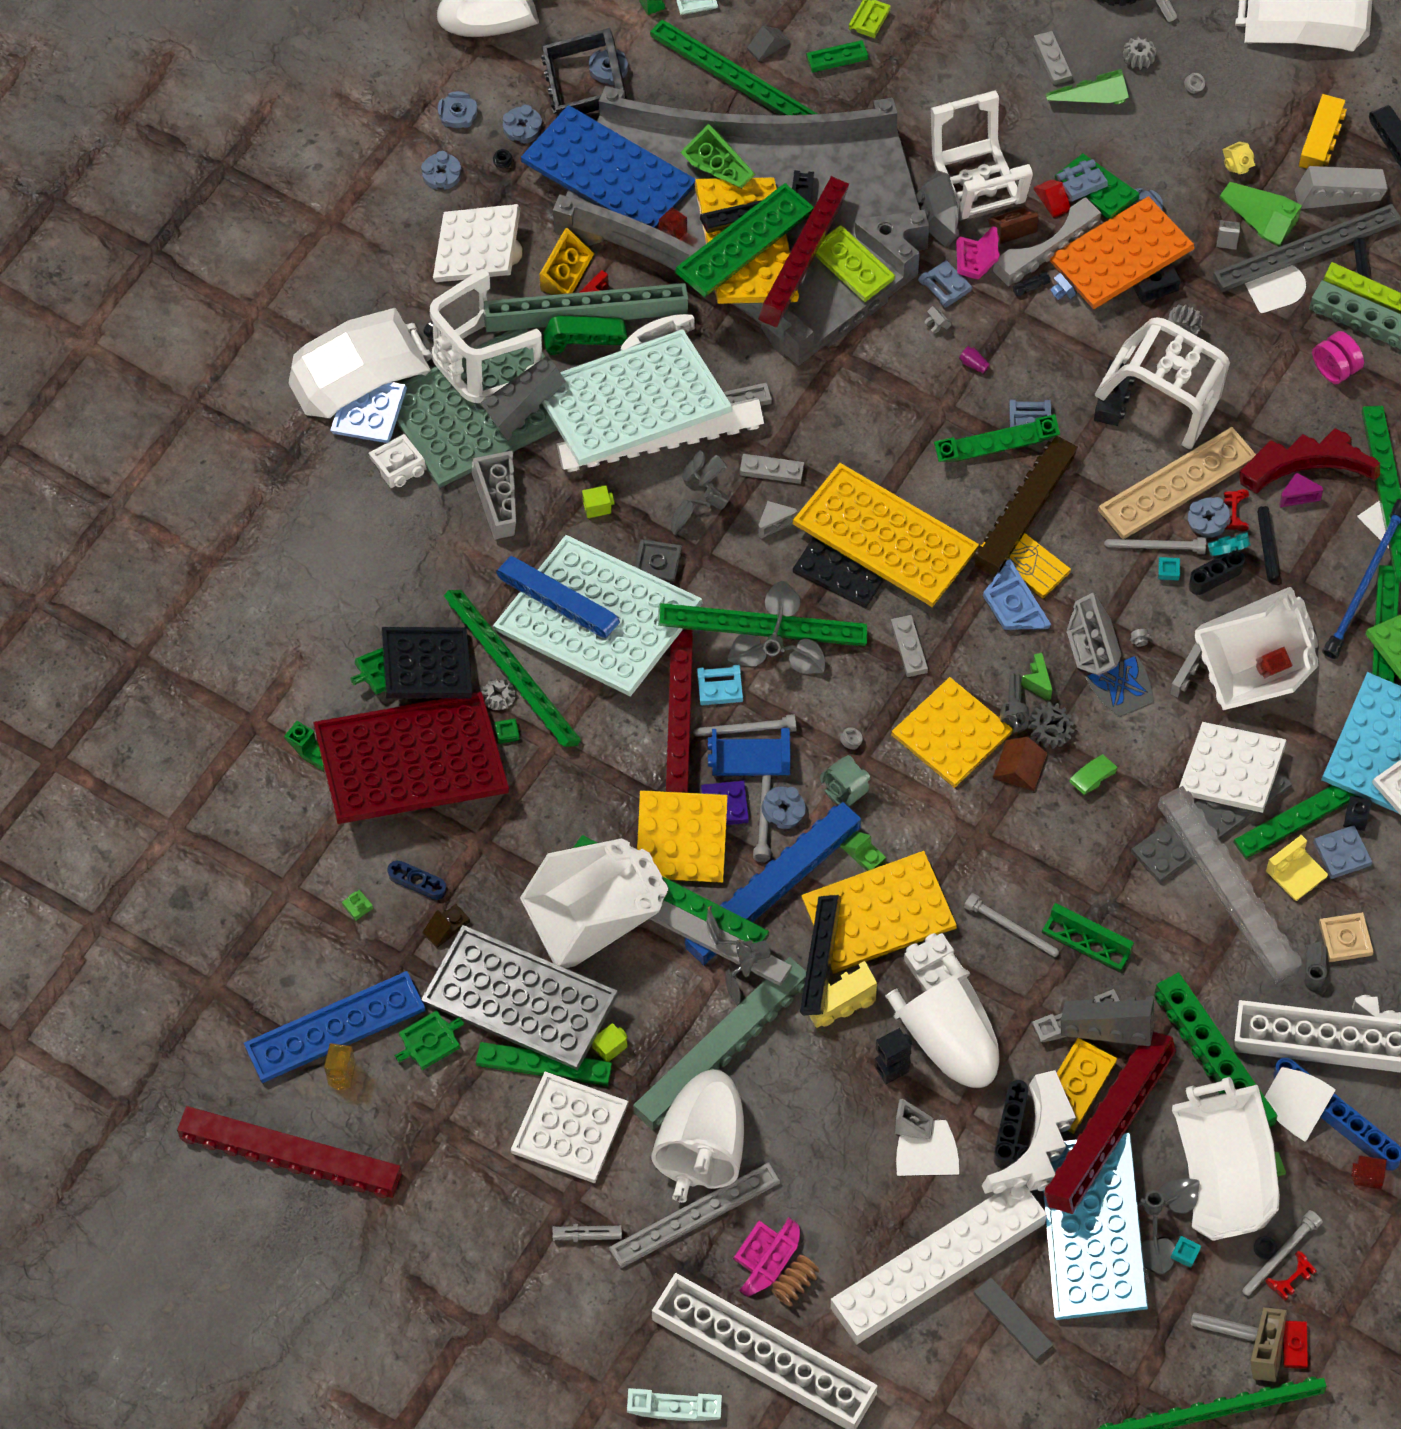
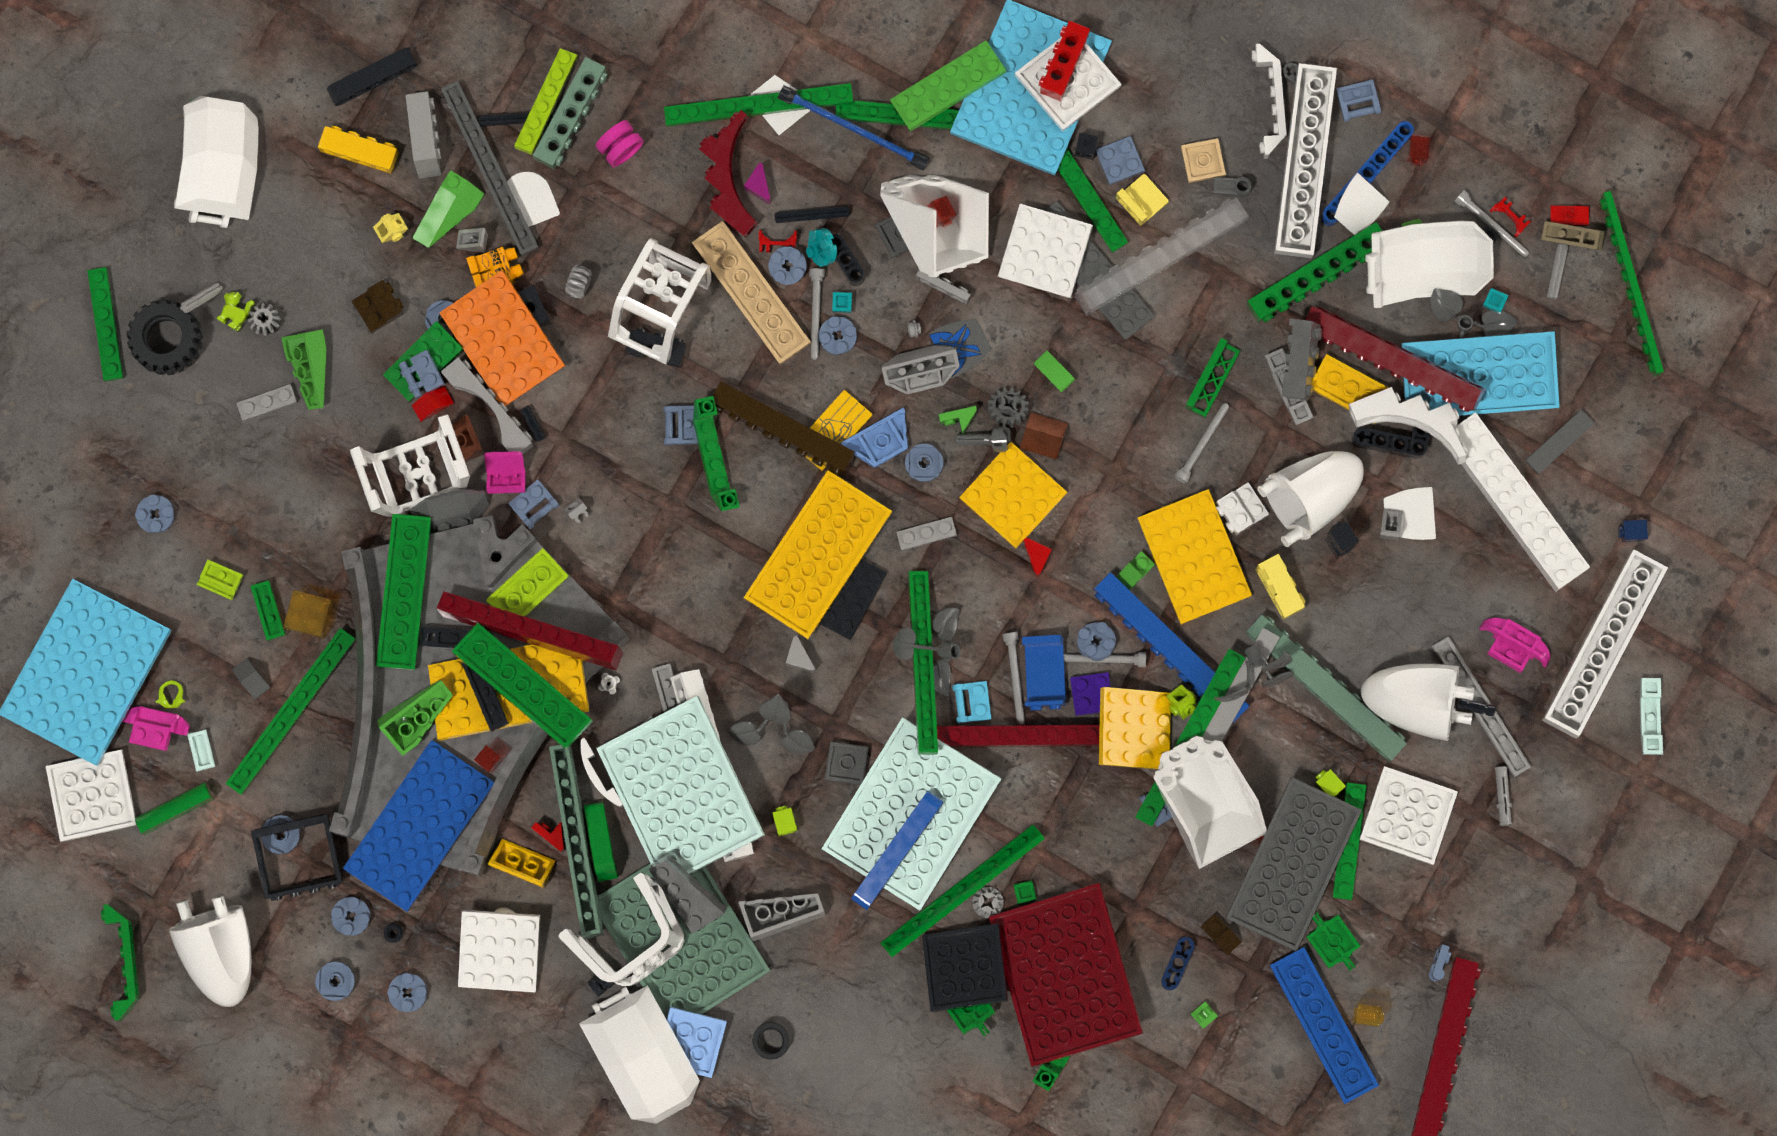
camera: 90 degrees left, 20 degrees up
(364, 498) = (768, 1026): none -> black tyre
(398, 461) = (745, 1010): white plate -> none
(400, 1147) = (1441, 957): none -> sand blue plate
(693, 1204) = (1477, 707): none -> black axle
(711, 886) = (1182, 702): none -> lime brick
(752, 342) = (607, 678): none -> white plate
(771, 468) = (741, 662): light grey plate -> none
(794, 1279) = (1539, 620): medium nougat piece -> none
(820, 955) = (1246, 603): black tile -> none
(831, 87) = (308, 614): none -> clear yellow brick
(845, 781) = (1073, 586): sand green brick -> none
(851, 157) = (403, 592): none -> green plate
(851, 738) = (1024, 583): light grey tile -> none
(882, 750) = (1037, 554): none -> red slope
(902, 1396) = (1633, 531): none -> dark blue brick
(974, 360) = (620, 477): magenta cone -> none
(992, 654) = (915, 456): none -> sand blue plate
(1062, 288) = (538, 393): medium blue tile -> none
(1135, 555) = (842, 345): none -> sand blue plate
(1145, 27) = (236, 314): none -> lime animal
(1155, 151) = (378, 306): none -> dark brown plate
(1194, 83) = (298, 267): light grey tile -> none
(1206, 250) = (492, 262): none -> light orange hips

